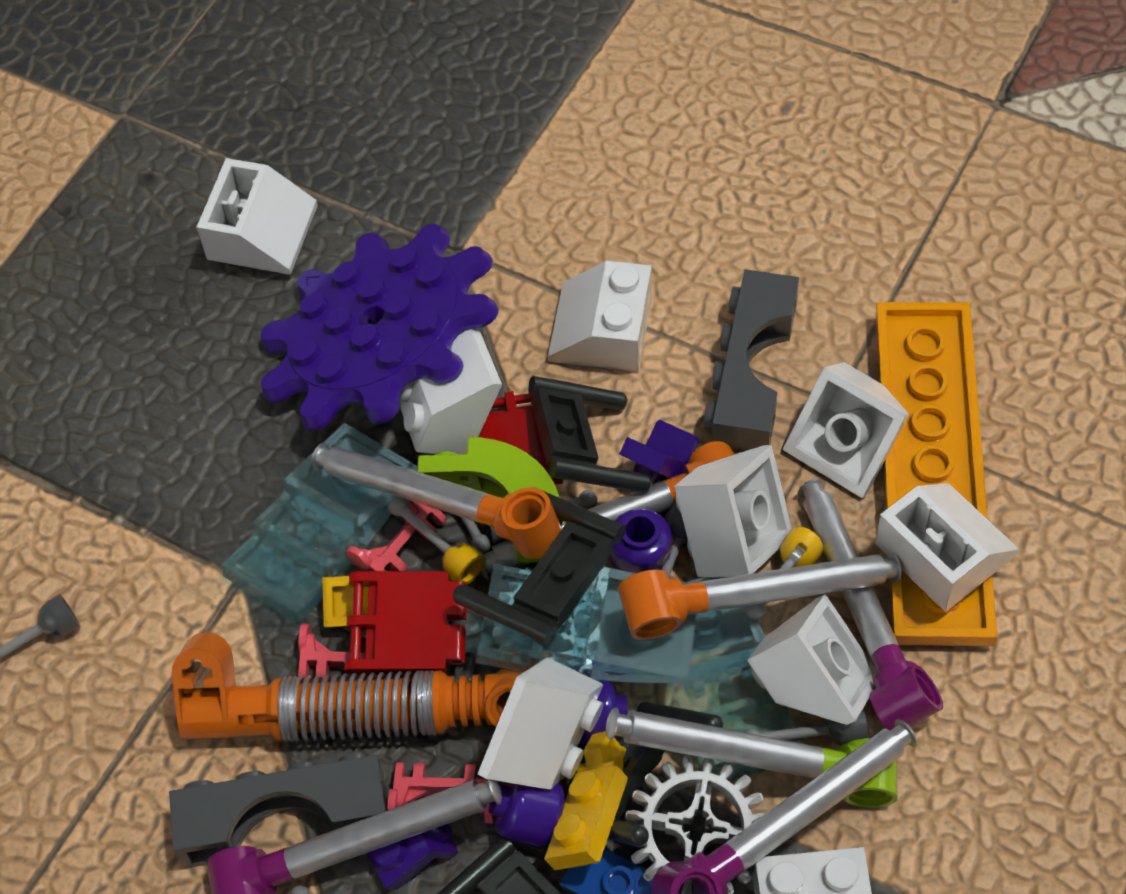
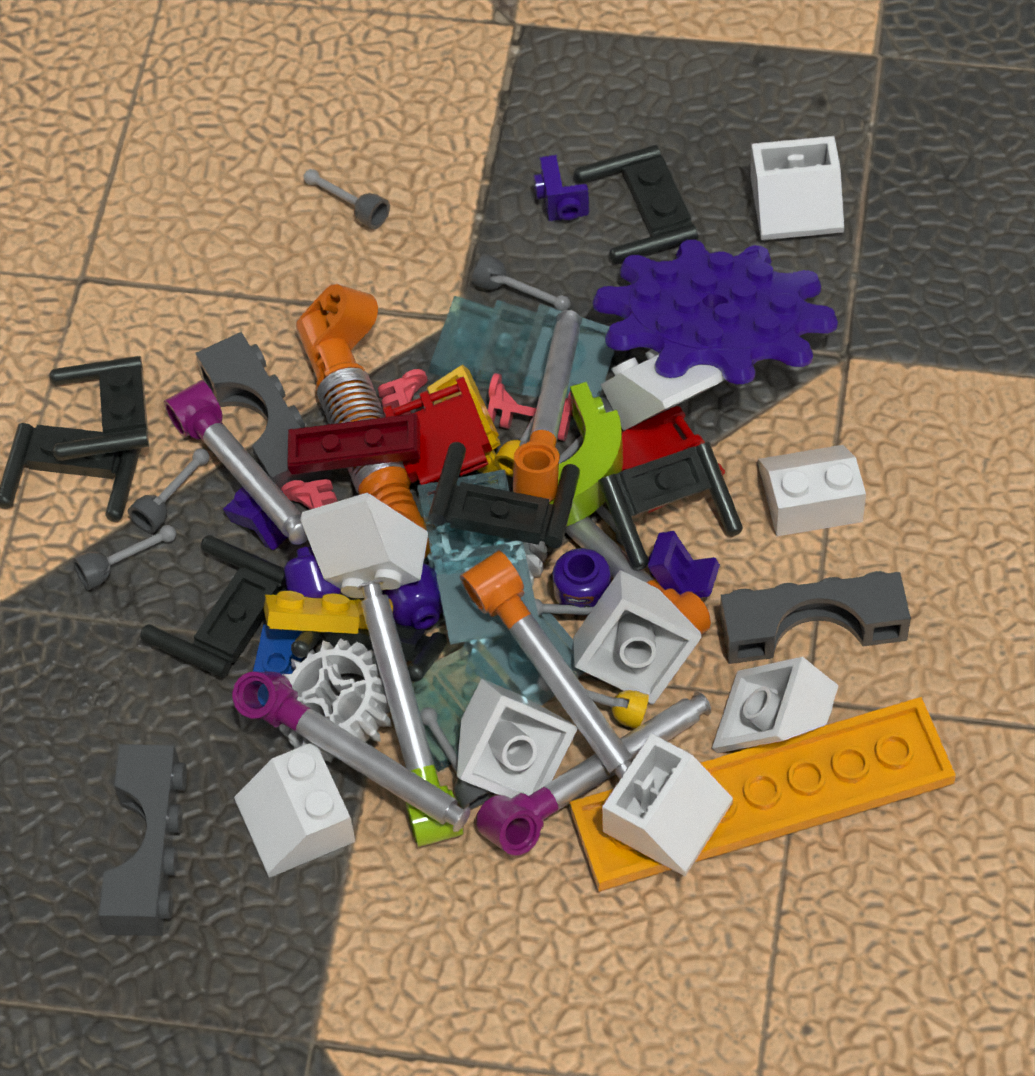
camera: 70 degrees right, 0 degrees up
(138, 432) = (560, 201): none -> dark purple bracket
(188, 348) = (654, 196): none -> pearl dark grey plate
(209, 523) = (491, 274): none -> hinge
(390, 707) = (354, 444): none -> dark red tile

